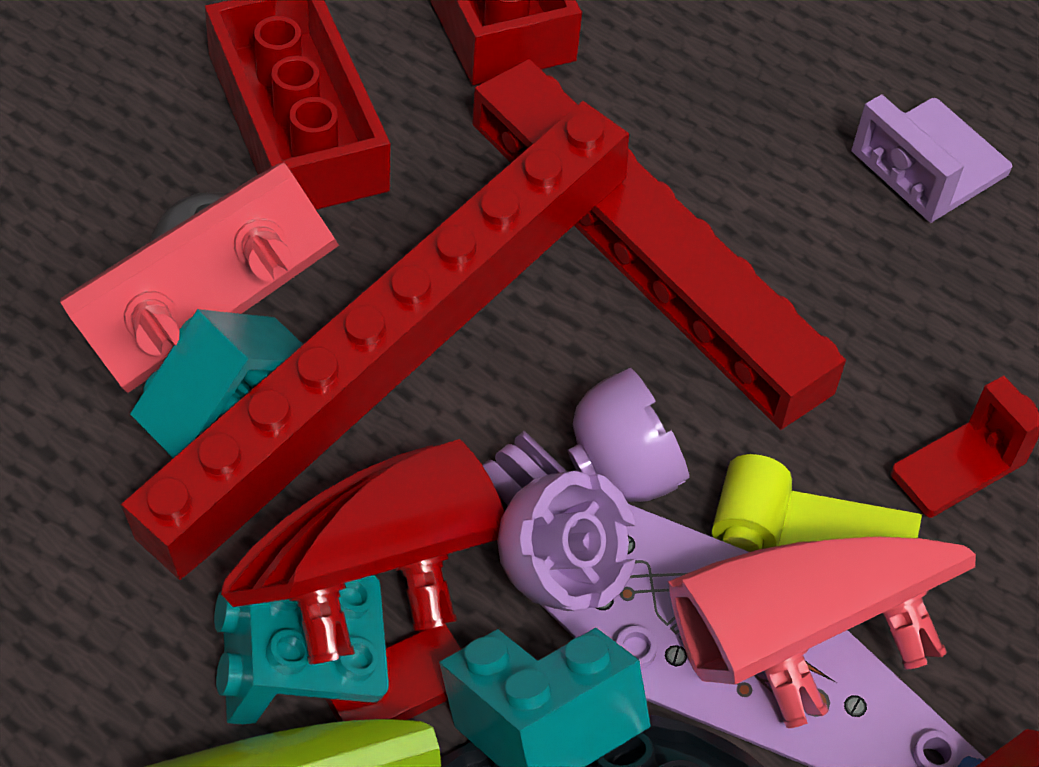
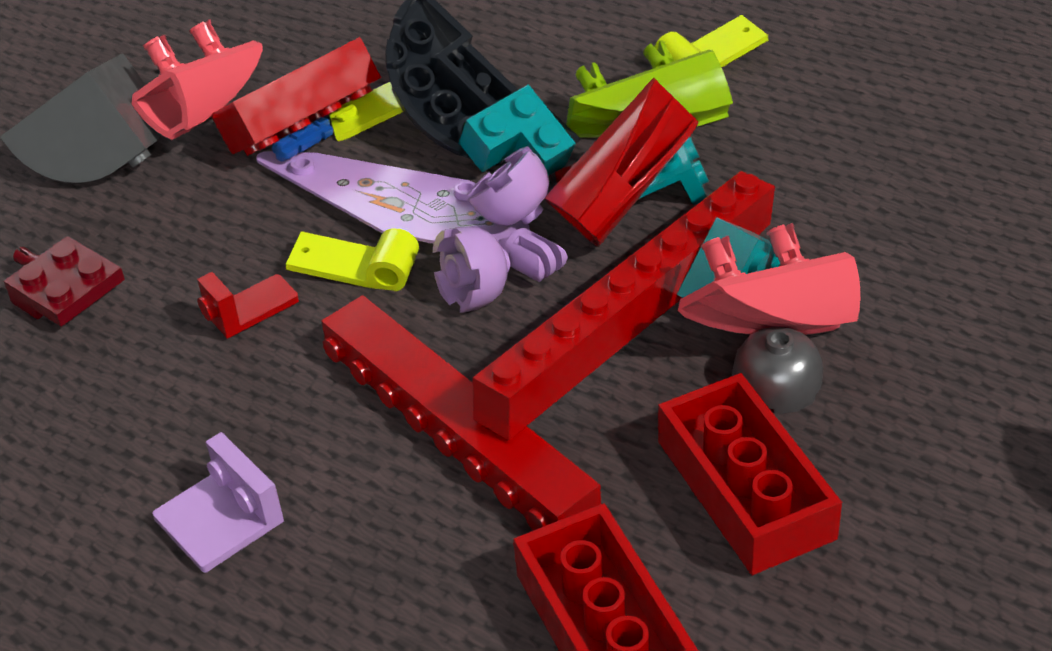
camera: 175 degrees left, 10 degrees down
(784, 599) = (359, 179): coral piece -> none

